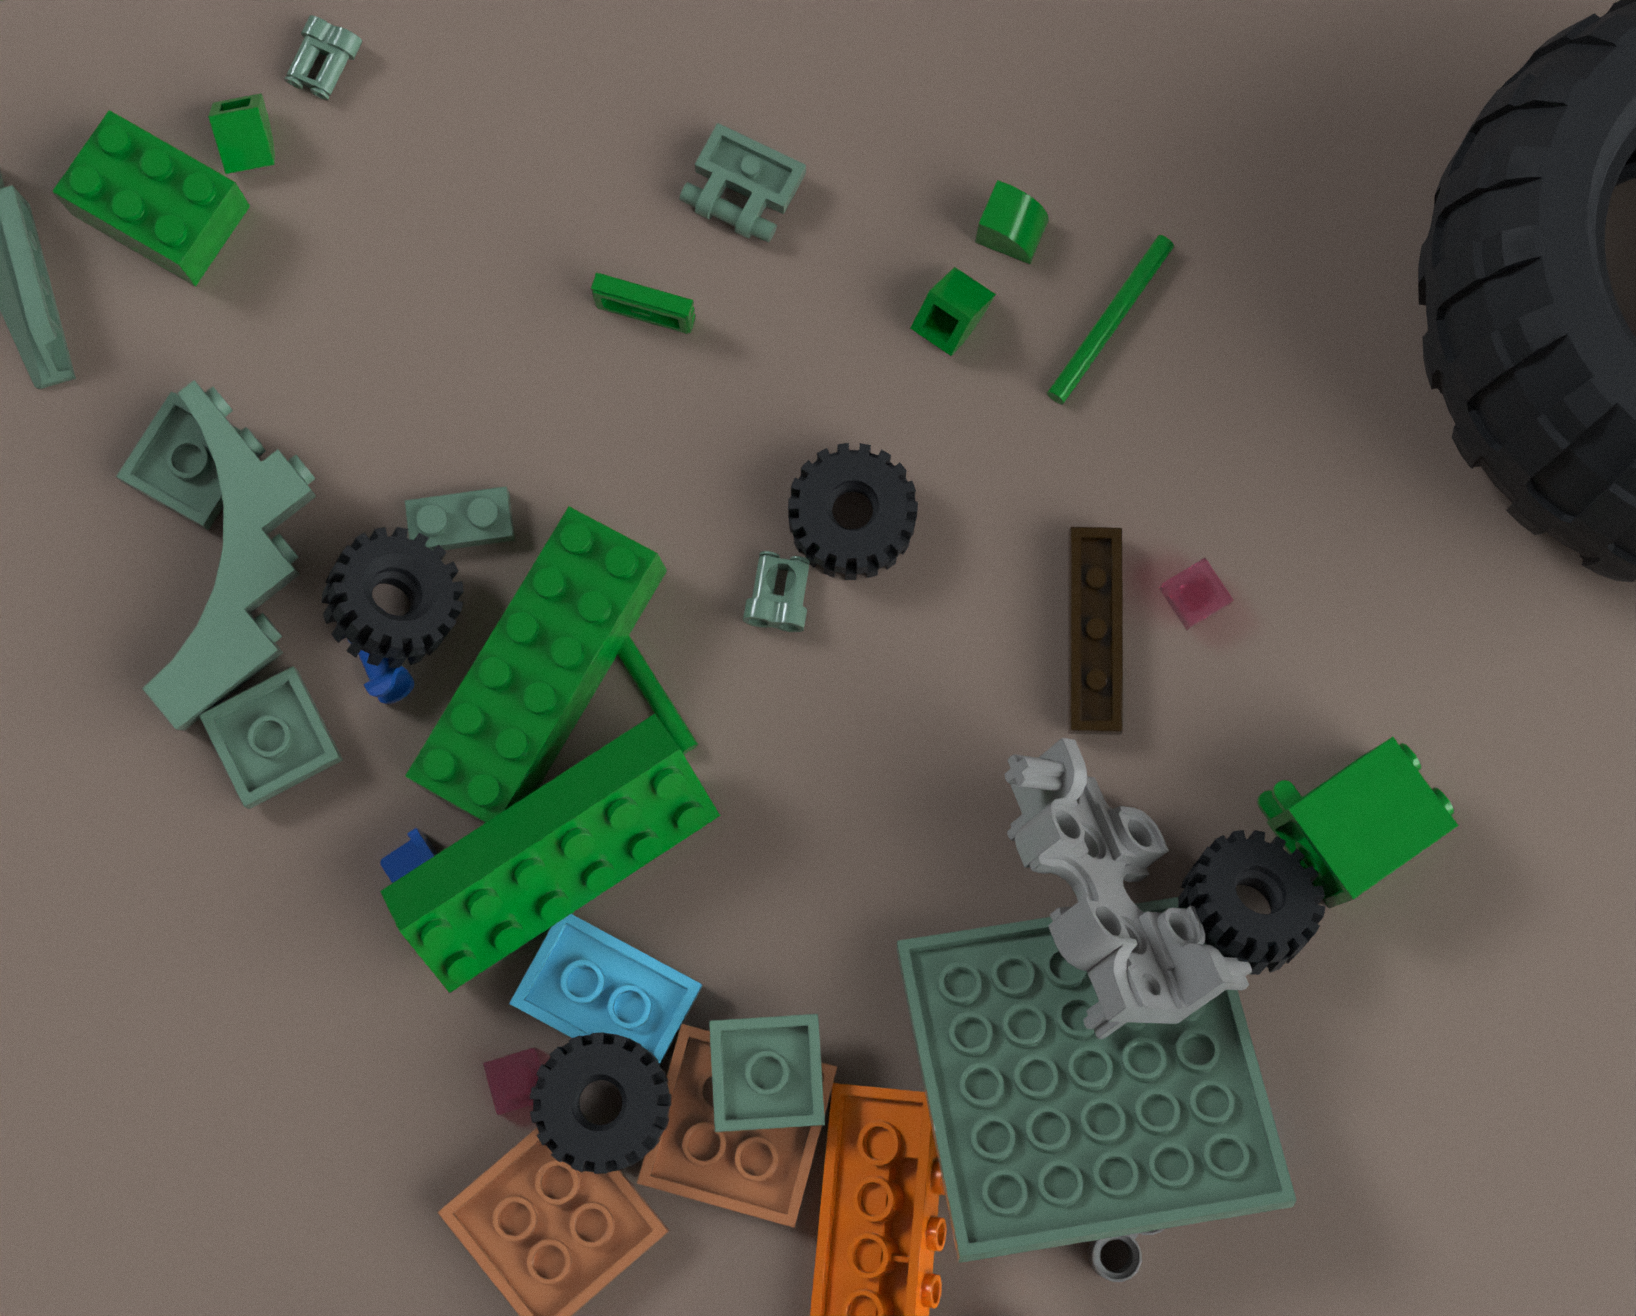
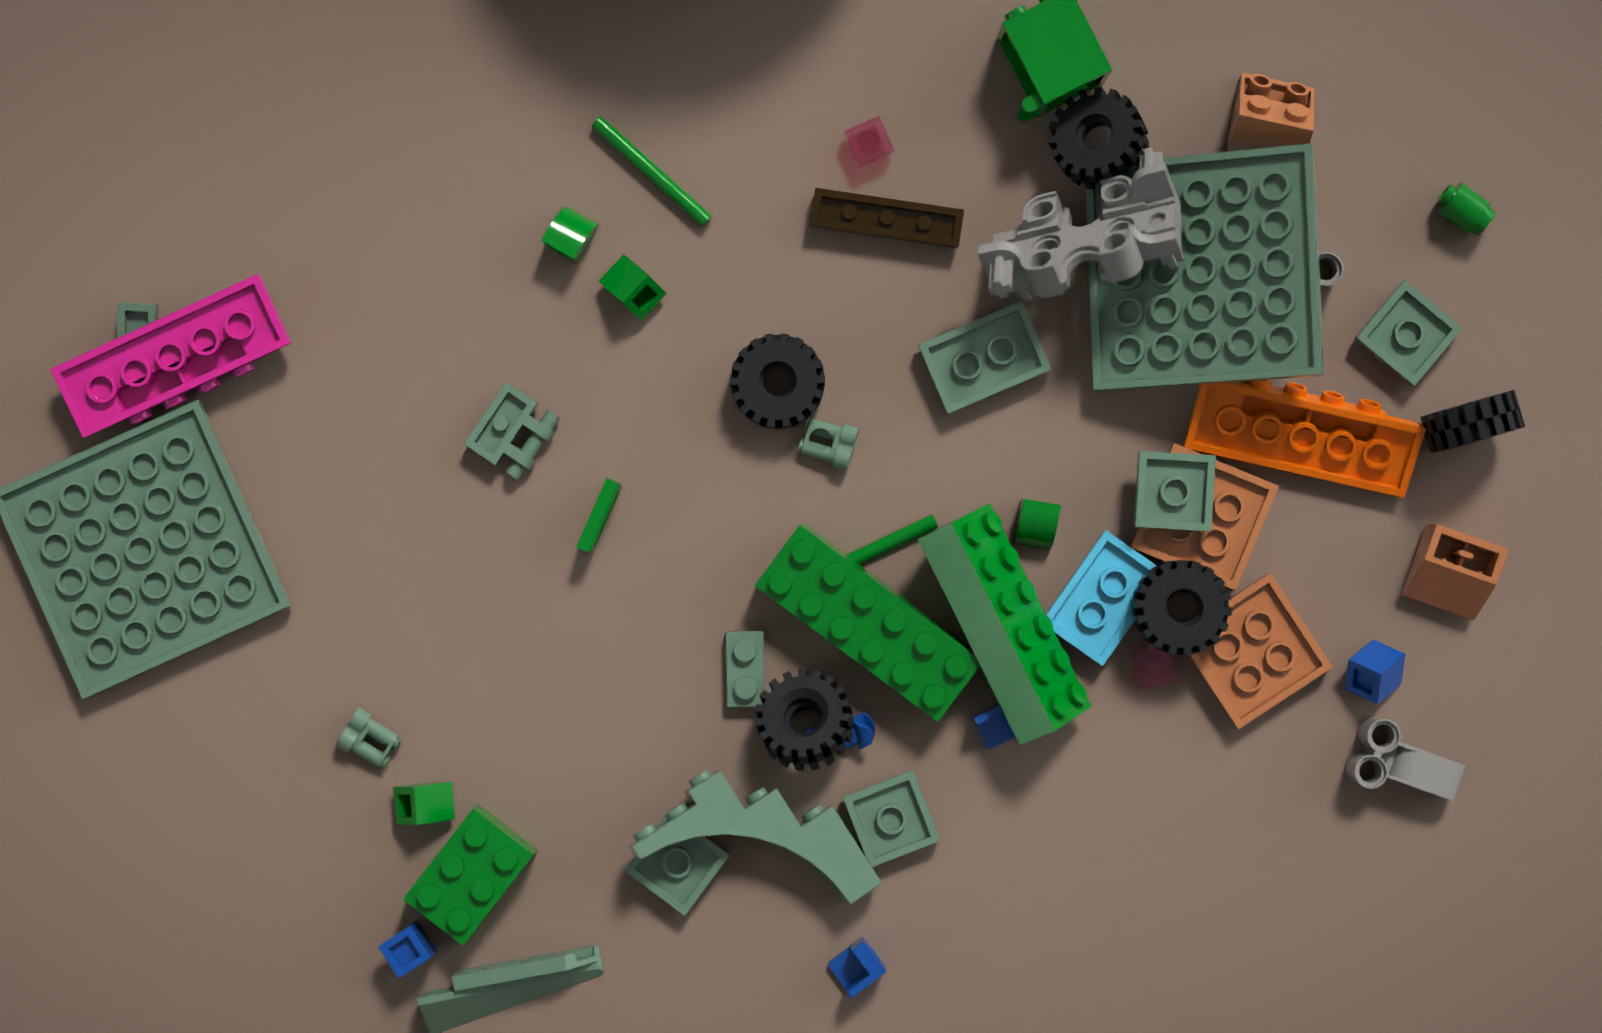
camera: 85 degrees left, 10 degrees up
(47, 131) = (408, 949): none -> blue panel
(64, 718) = (857, 967): none -> blue panel
(700, 887) = (1036, 524): none -> green brick
(922, 786) = (984, 357): none -> sand green plate
(1329, 1149) = (1270, 113): none -> nougat slope

